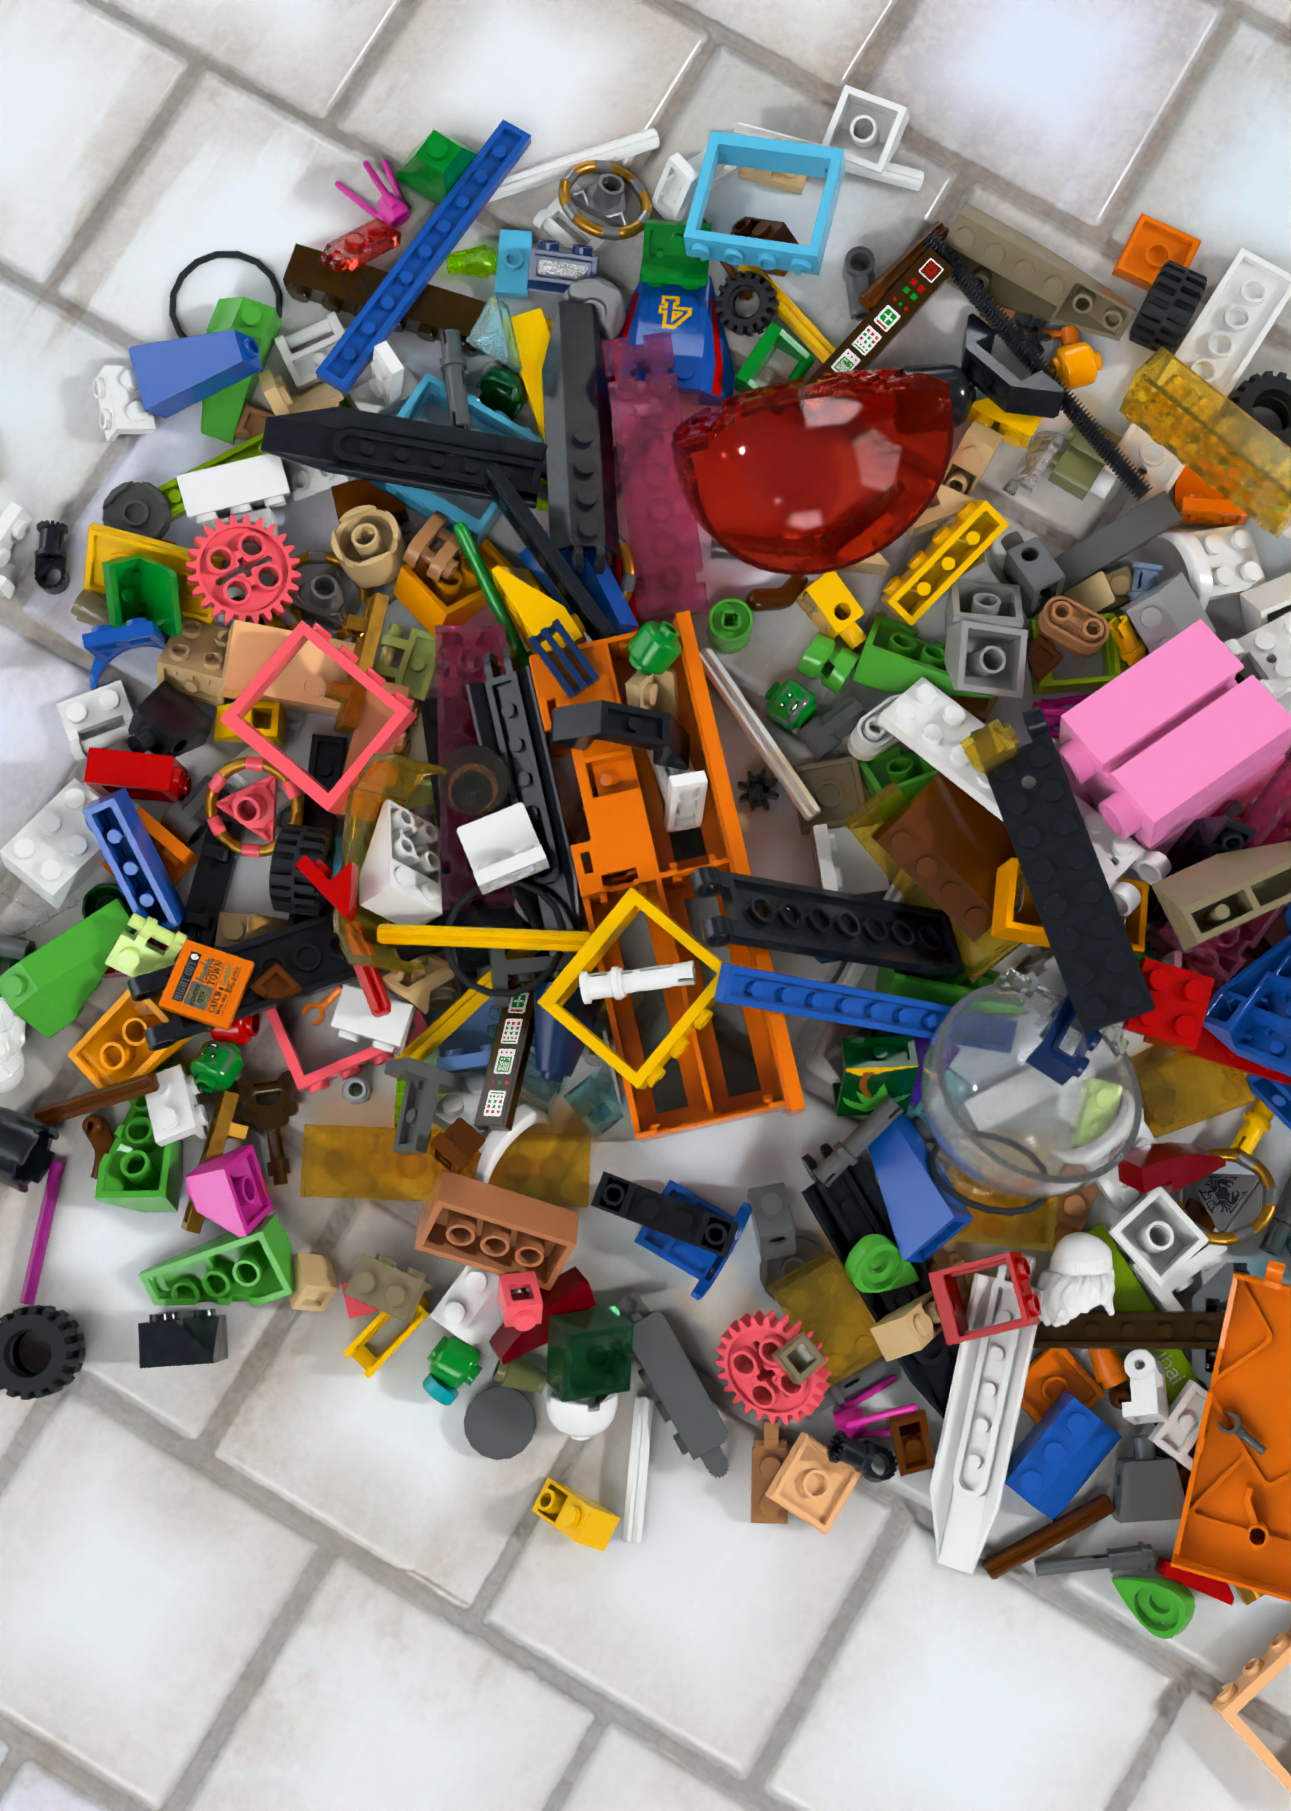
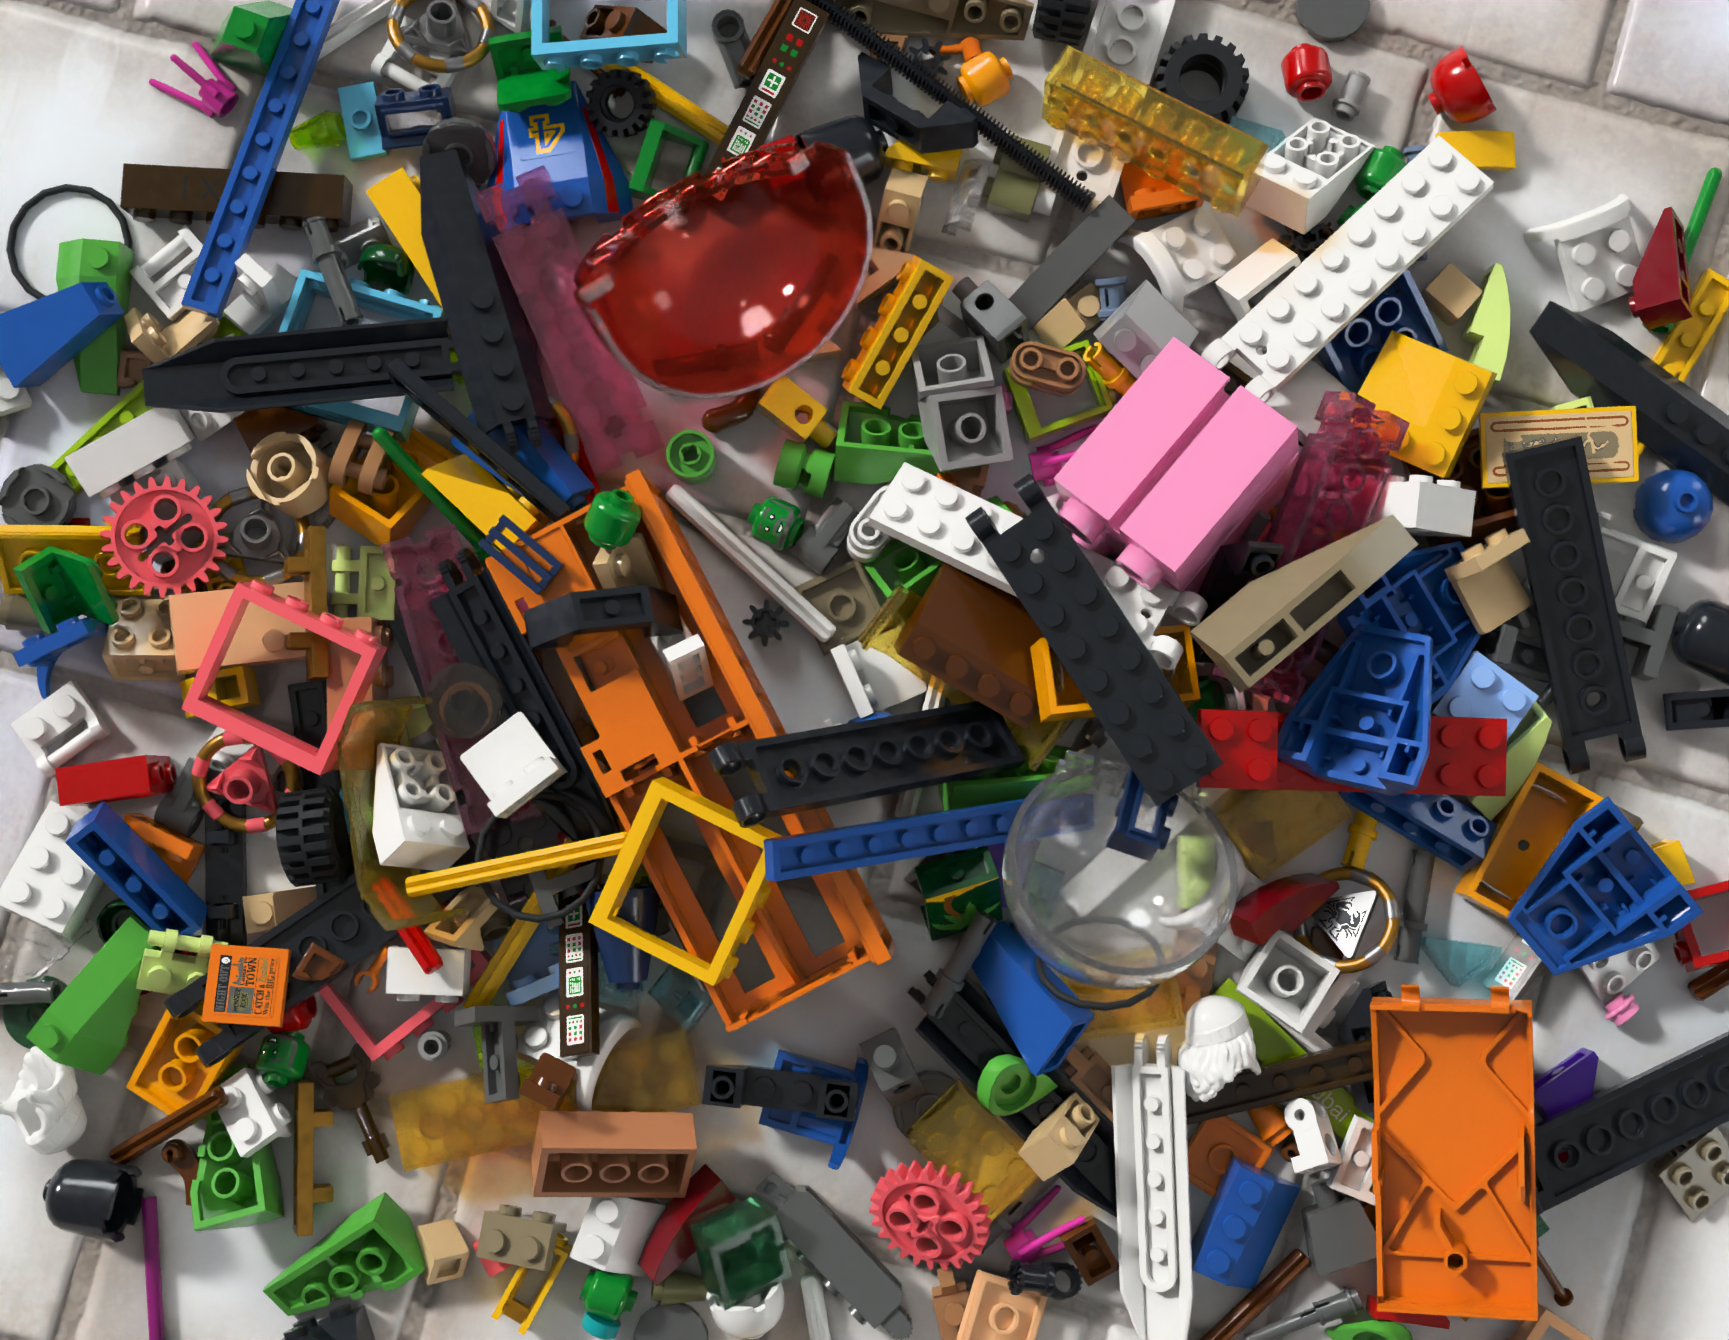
camera: 10 degrees left, 5 degrees up
(168, 724) = (132, 717): black torso -> none
(231, 1190) = (332, 1184): dark pink slope -> none
(340, 890) = (354, 859): red slope -> none
(360, 246) = (193, 148): clear red hinge -> none
(495, 334) = (362, 212): clear light blue slope -> none
(520, 1309) = (658, 1226): coral brick -> none
(618, 983) = (666, 883): white pin -> none
(798, 1358) = (952, 1204): dark tan slope -> none
(951, 1307) = (1095, 1107): red window -> none
(990, 746) = (987, 532): clear yellow brick -> none
(1042, 658) = (1025, 408): reddish brown tile -> none
(1242, 1433) = (1415, 1160): dark grey hand -> none

